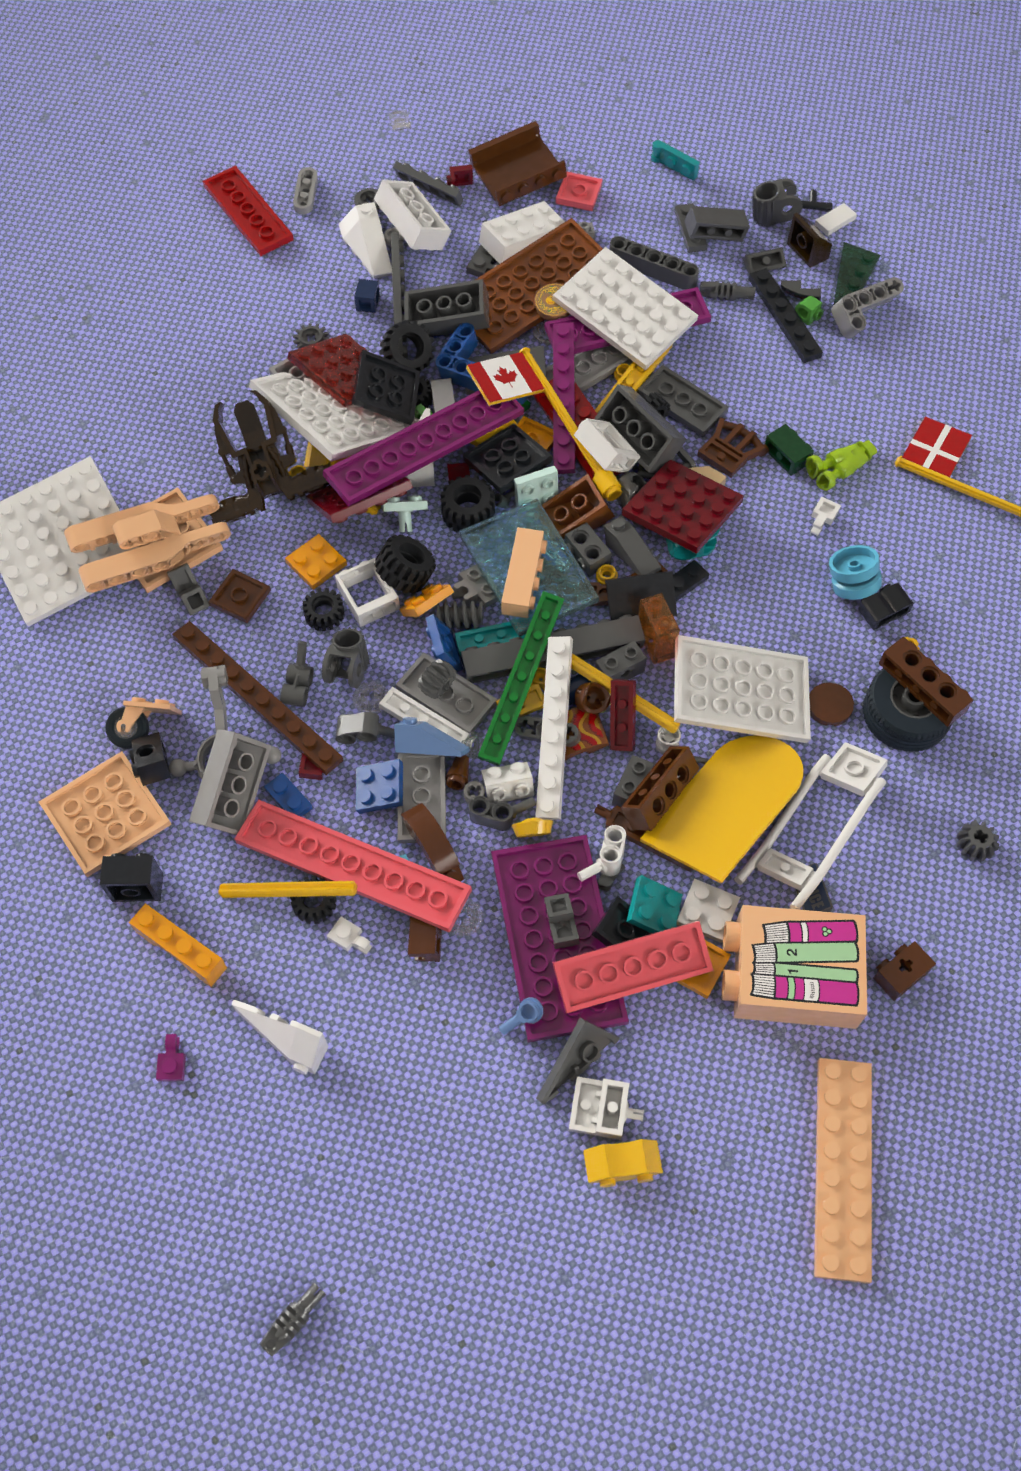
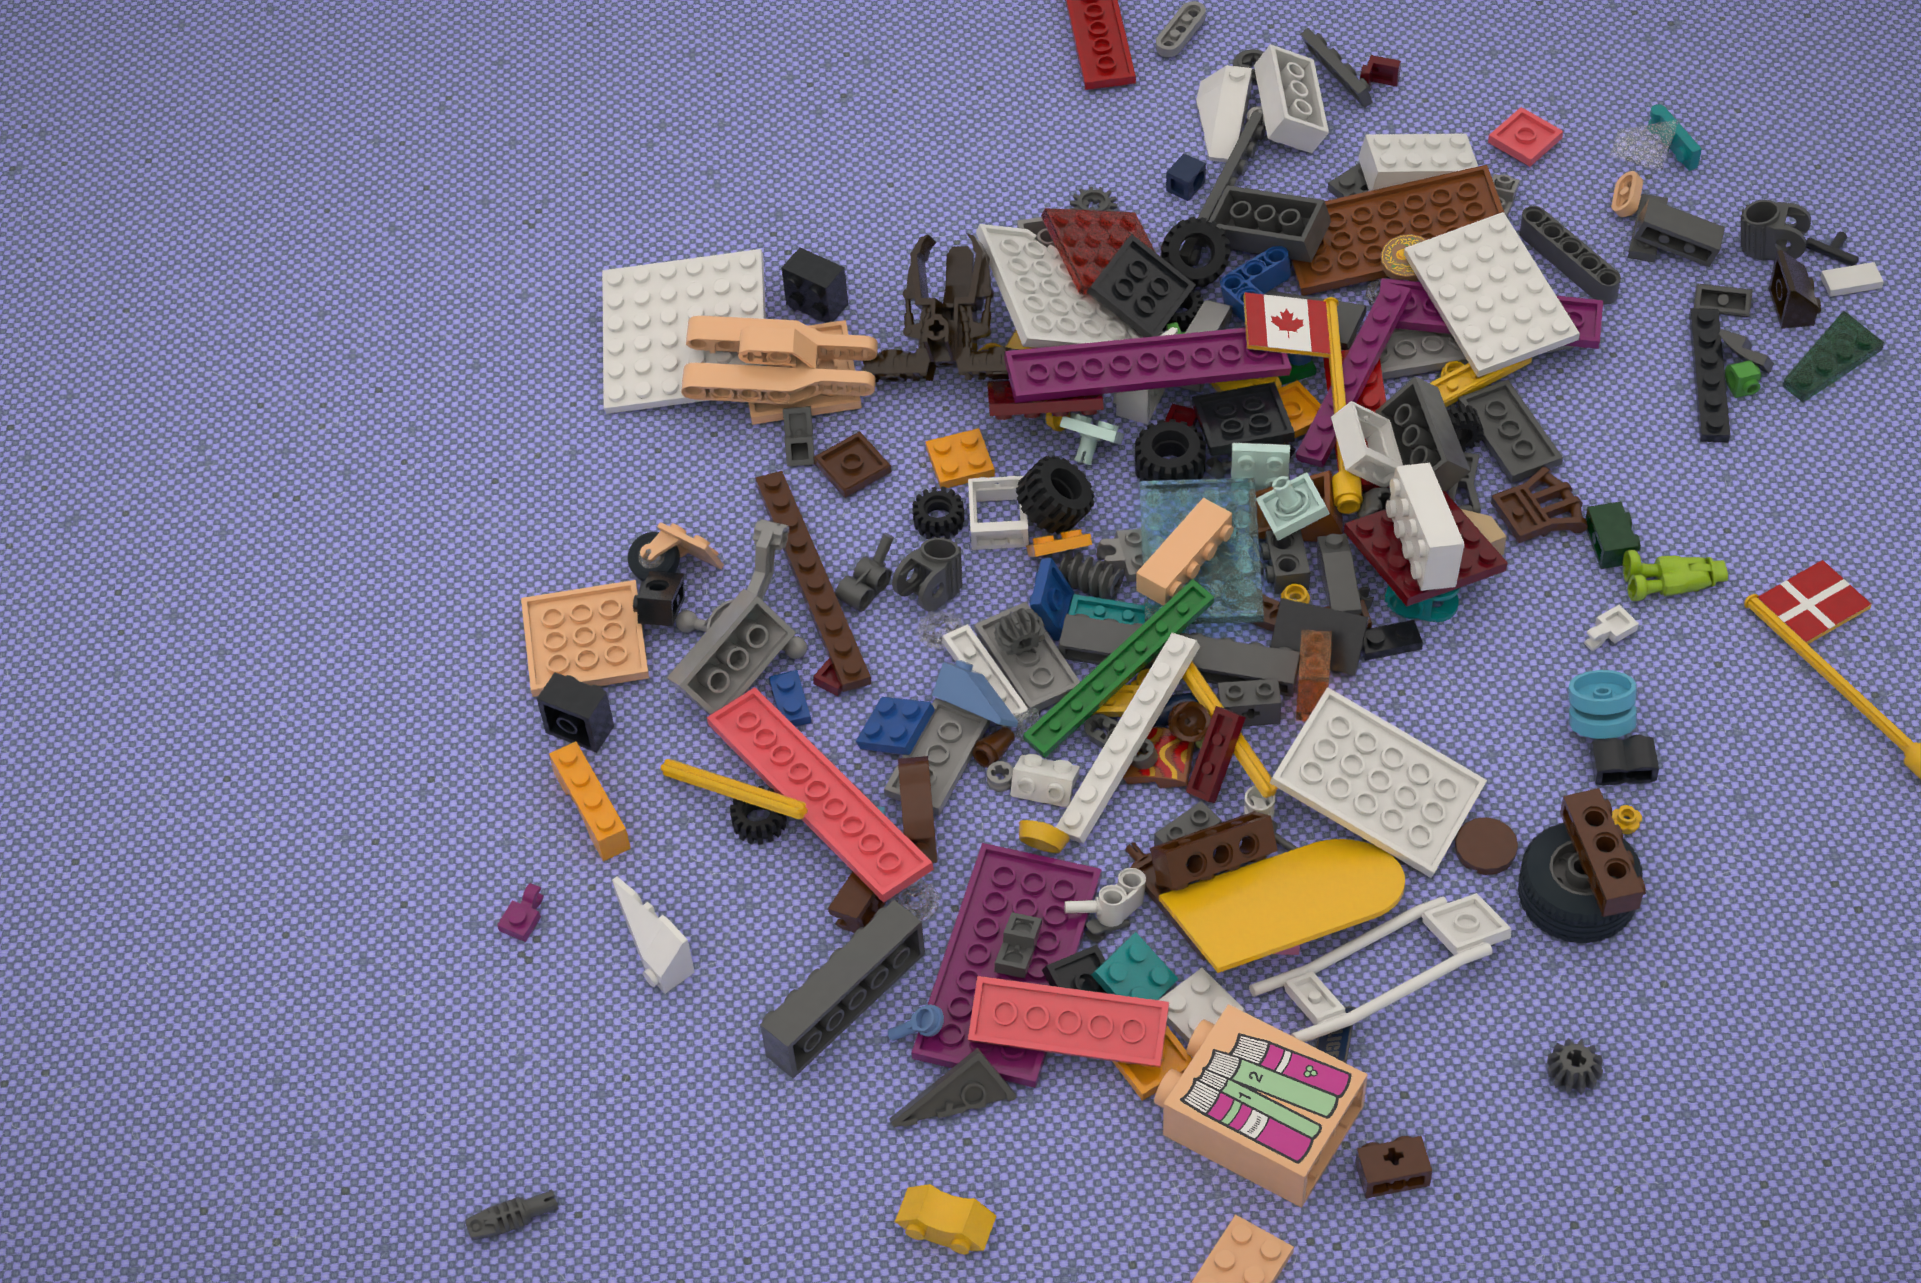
camera: 30 degrees right, 10 degrees down
(142, 469) = (815, 286): none -> black brick
(347, 935) = (776, 867): white plate -> none
(360, 725) = (908, 653): dark grey beam -> none
(453, 1015) = (842, 988): none -> dark grey brick
(489, 816) = (1007, 802): dark grey beam -> none
(516, 164) = (1461, 77): reddish brown panel -> none
(577, 509) = (1292, 505): none -> light aqua plate
(601, 1108) = (954, 1156): white plate -> none
(660, 171) = (1645, 144): none -> clear wing
(666, 208) = (1627, 194): none -> light nougat plate
(687, 491) = (1425, 526): none -> white brick
(714, 289) = (1647, 319): dark grey hinge -> none
(850, 308) = (1826, 395): light grey beam -> none

